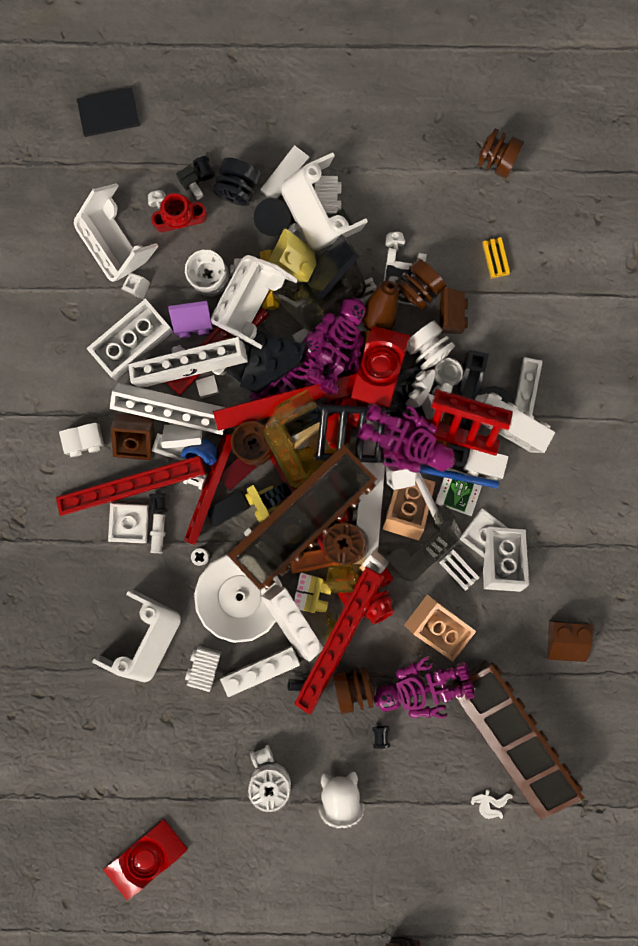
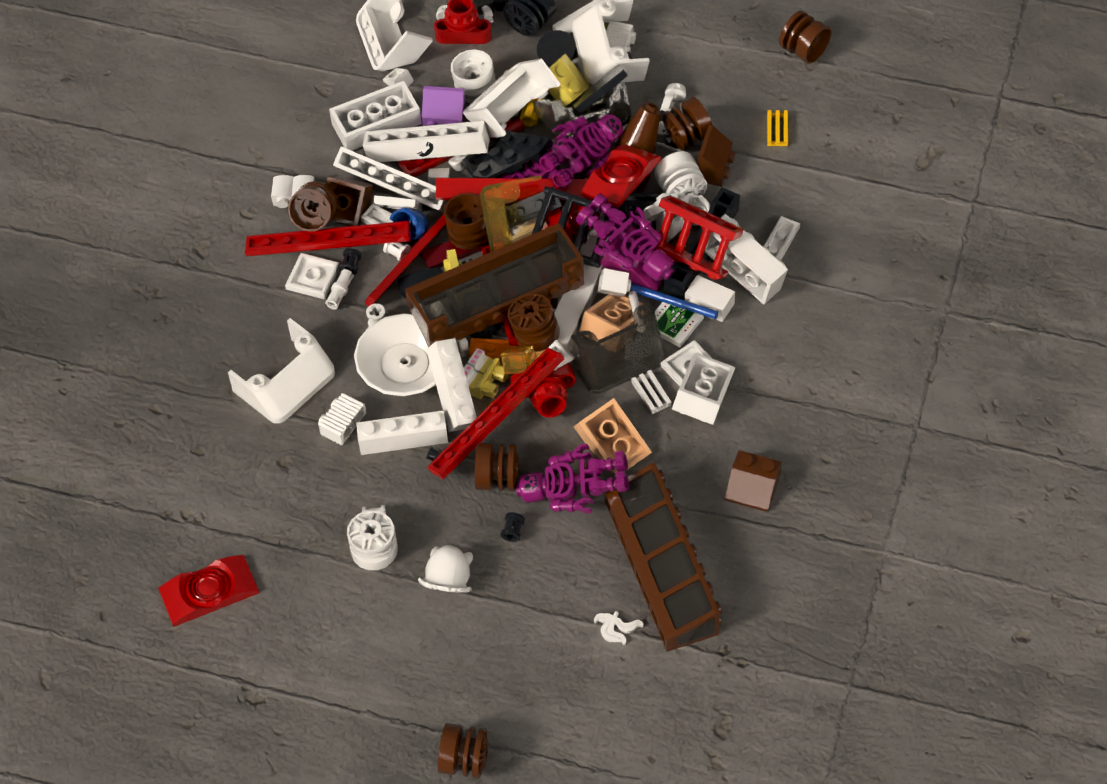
camera: 20 degrees right, 30 degrees down
(107, 461) = (309, 216): none -> reddish brown wheel

